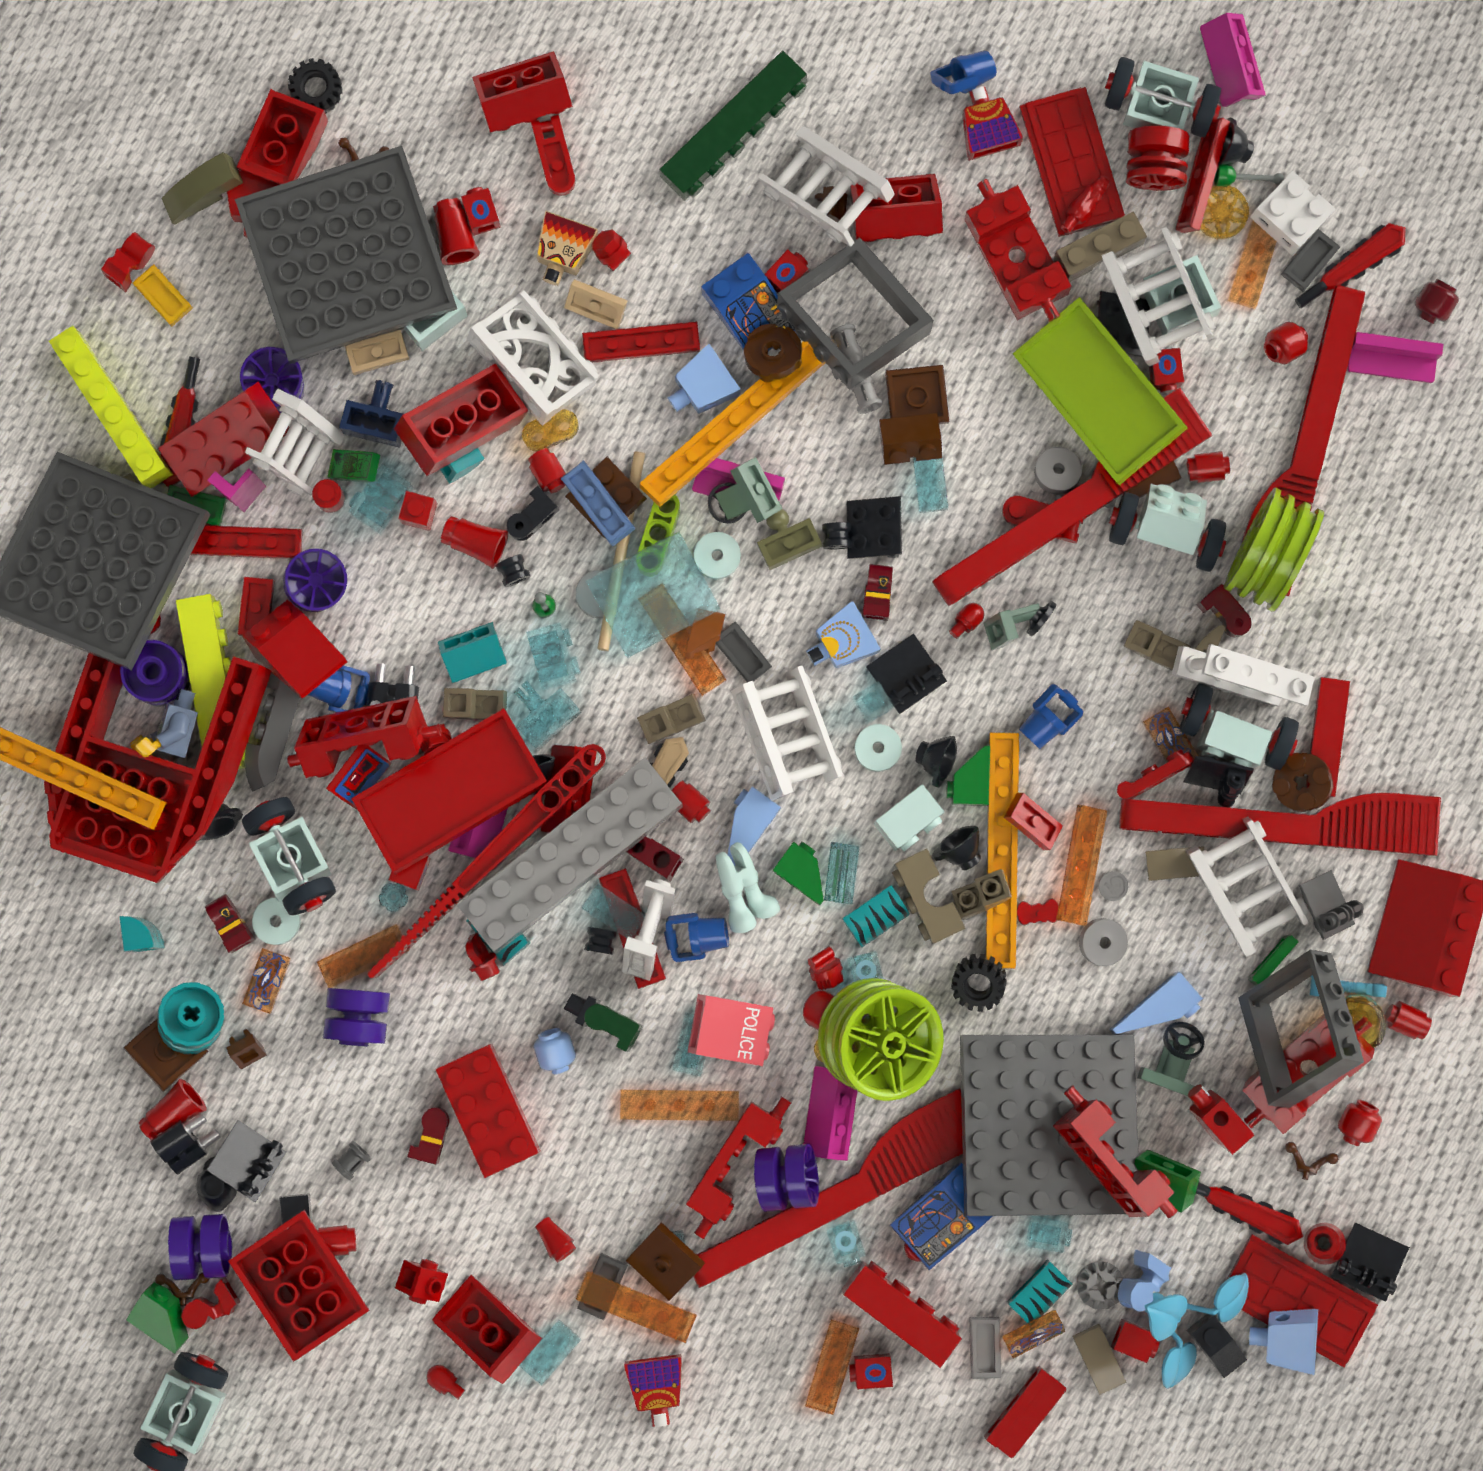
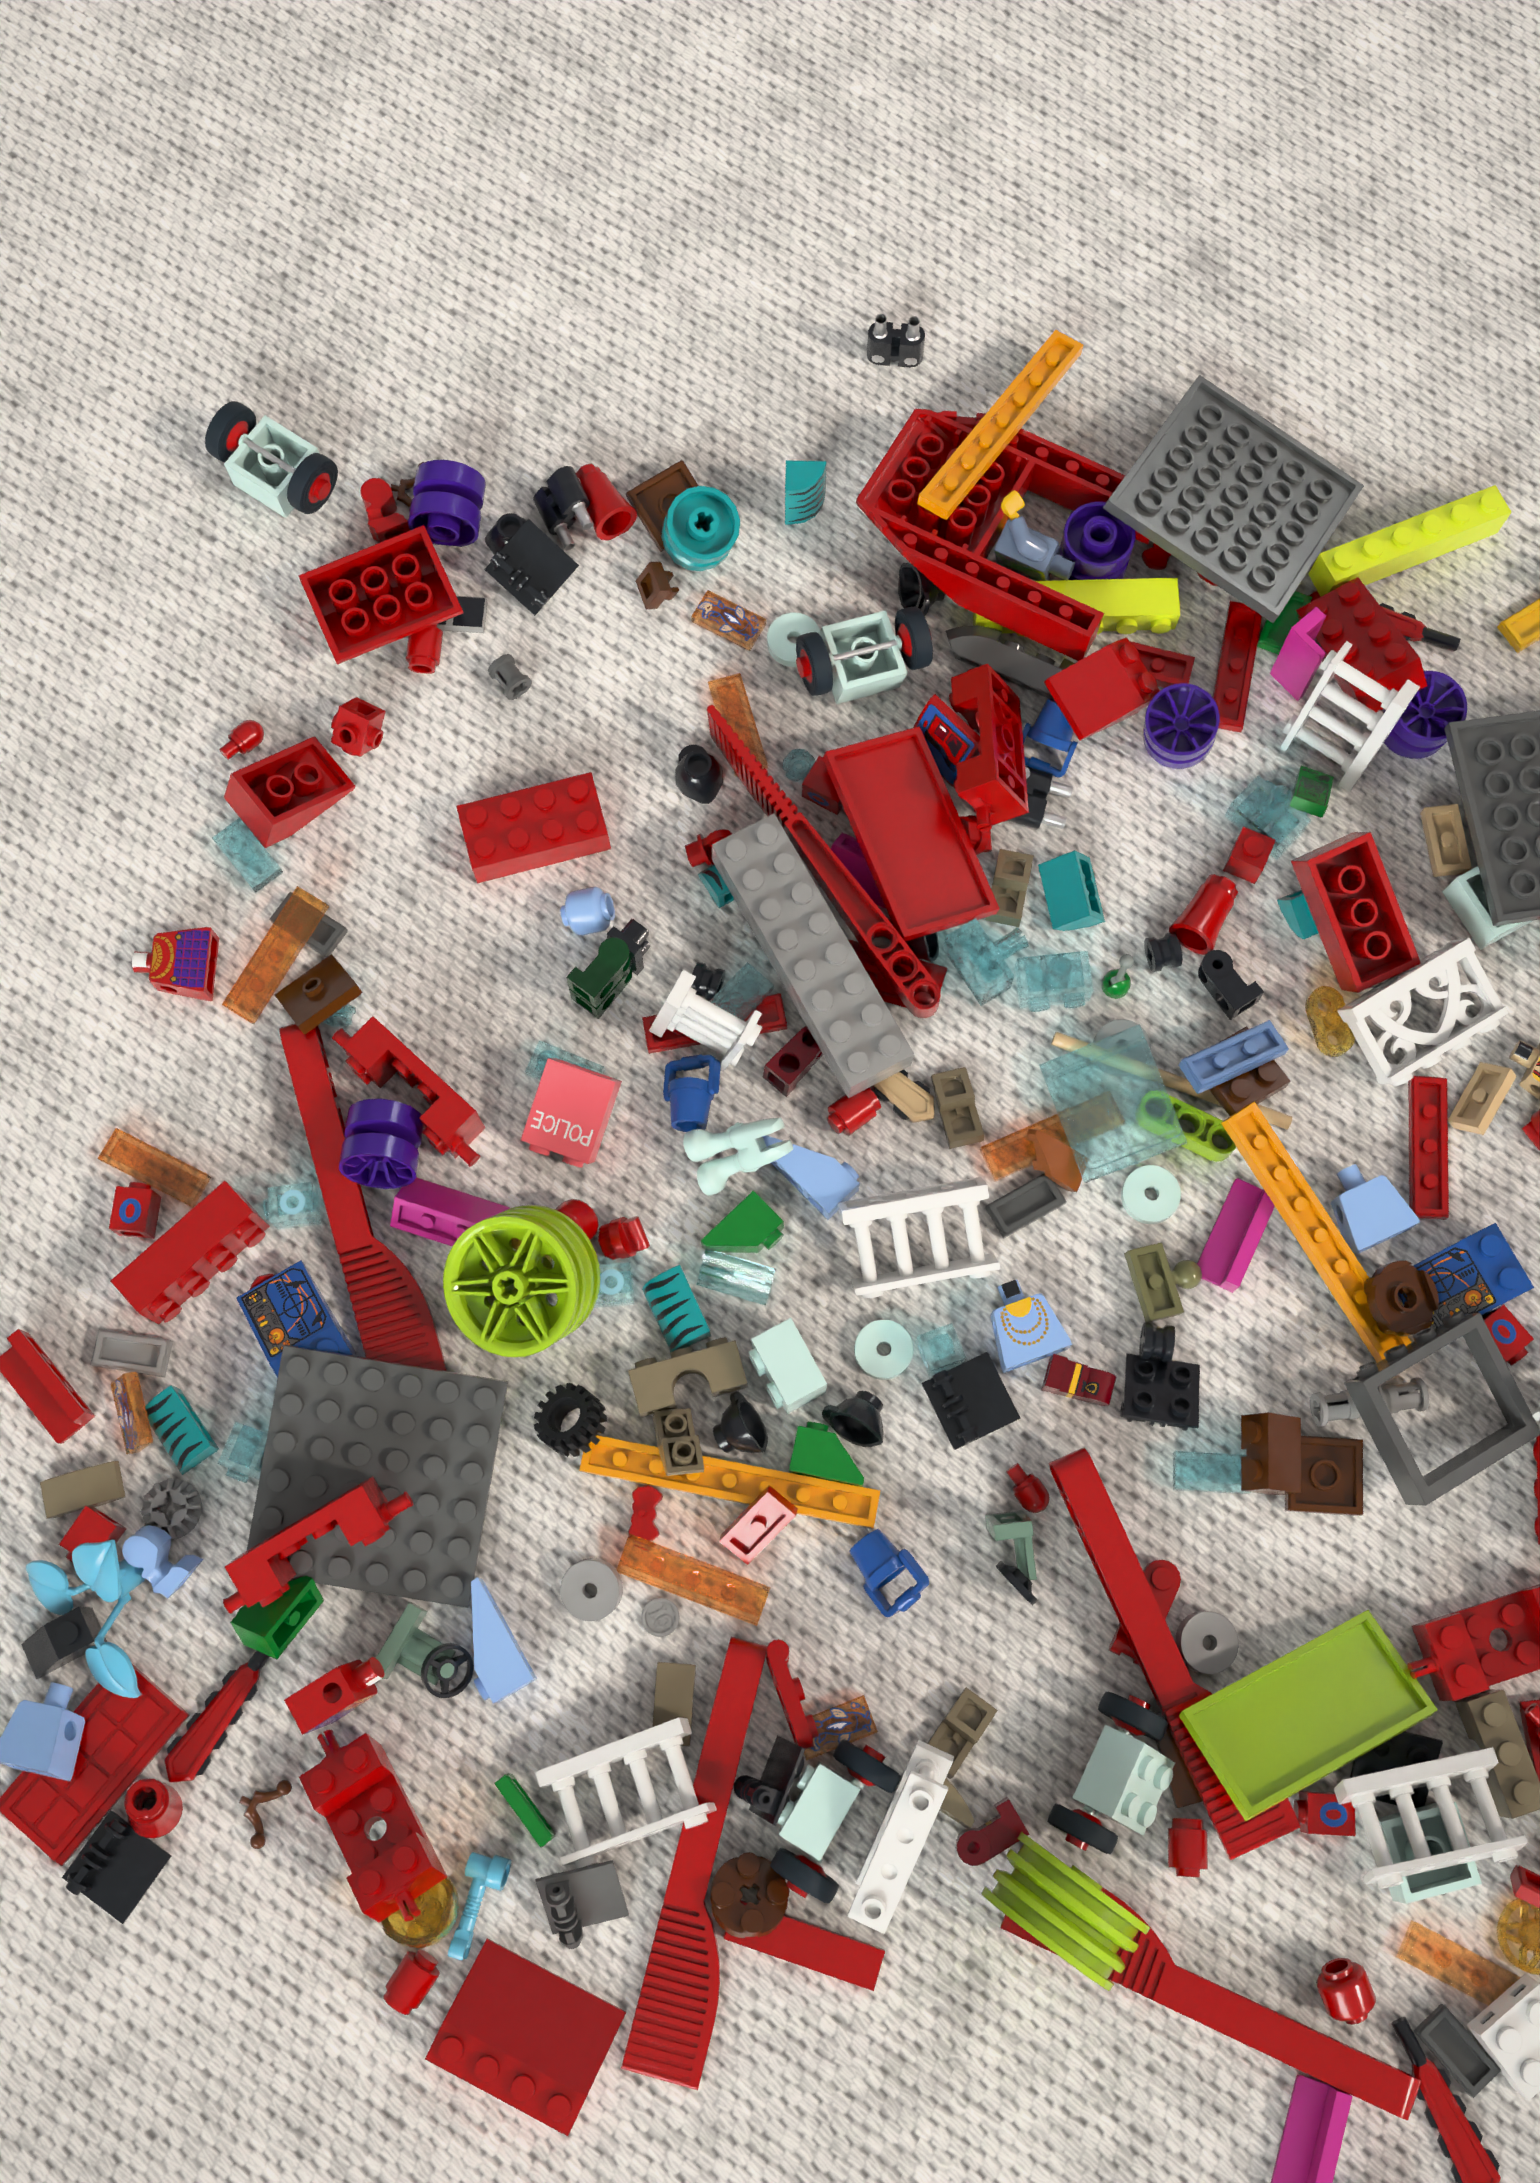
camera: 100 degrees right, 10 degrees down
(160, 1317) = (383, 455): green slope -> none
(229, 924) = (799, 588): dark red leg -> none
(328, 495) = (1279, 759): red brick -> none
(356, 1025) = (659, 696): dark purple wheel -> none
(372, 420) = (1366, 811): dark blue brick -> none
(413, 981) = (698, 774): none -> black piece
(435, 1126) = (515, 764): dark red leg -> none
(547, 470) = (1281, 1009): red brick -> none
(556, 1241) = (371, 880): red cone -> none
(679, 1105) = (497, 1043): clear orange tile -> none
(750, 493) = (1225, 1236): sand green piece -> none
(1266, 1041) = (419, 1778): dark grey window -> none
(1360, 1122) = (294, 1887): red head -> none

